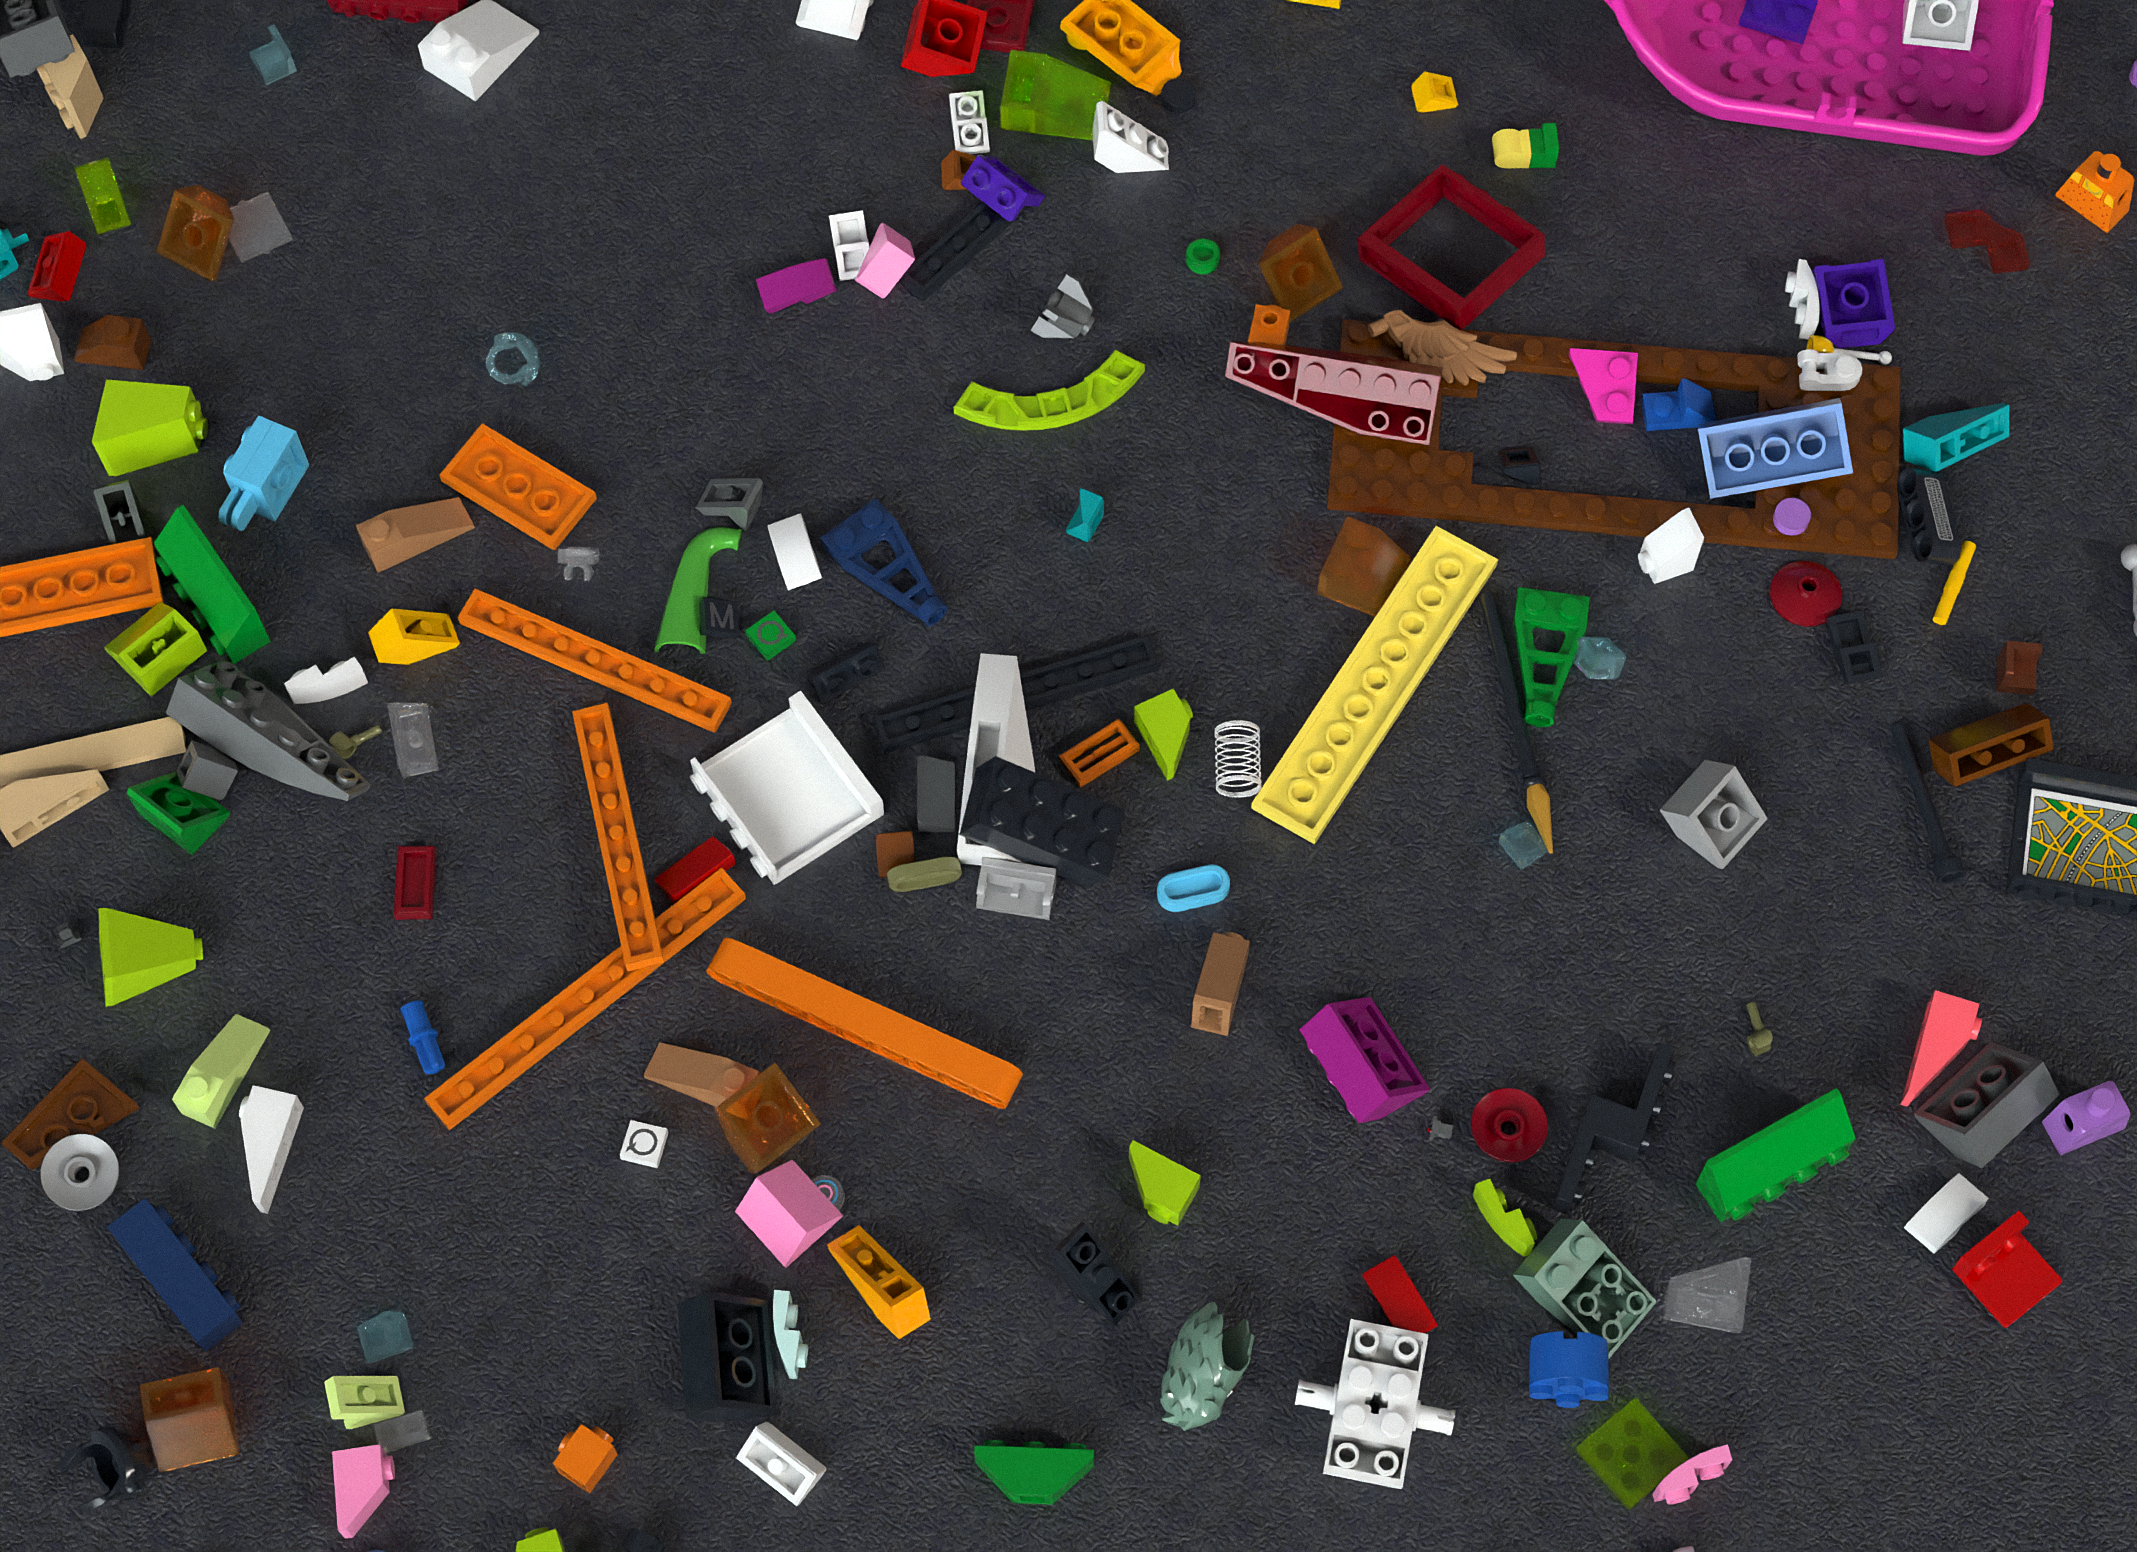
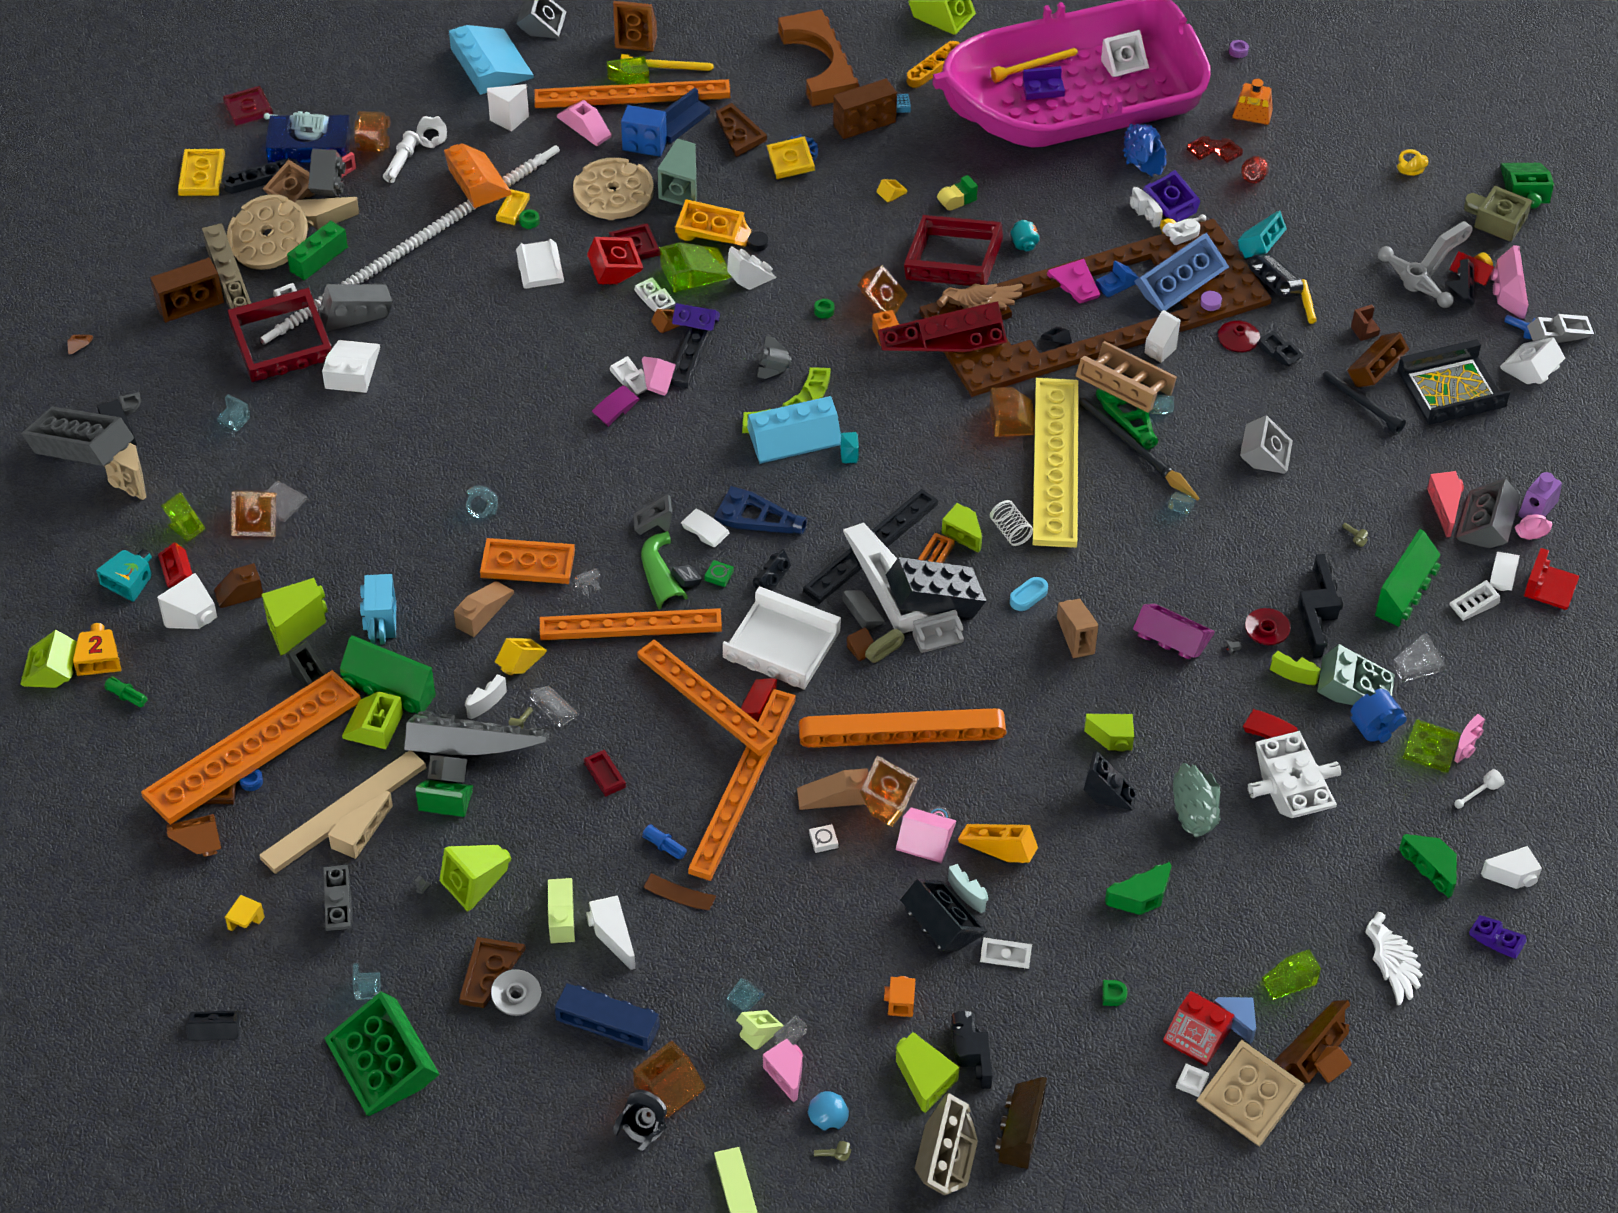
camera: 30 degrees left, 15 degrees down
(396, 1126) = (679, 893): none -> reddish brown sticker
(1020, 449) = (794, 429): none -> medium azure slope
(1548, 605) = (1122, 386): none -> medium nougat fence
(1581, 266) = (1024, 235): none -> teal head
(1864, 196) = (1144, 149): none -> blue head
(1864, 1227) = (1492, 600): none -> white slope
(2022, 309) = (1257, 173): none -> clear red head
(2044, 1158) = (1533, 527): none -> bright pink piece

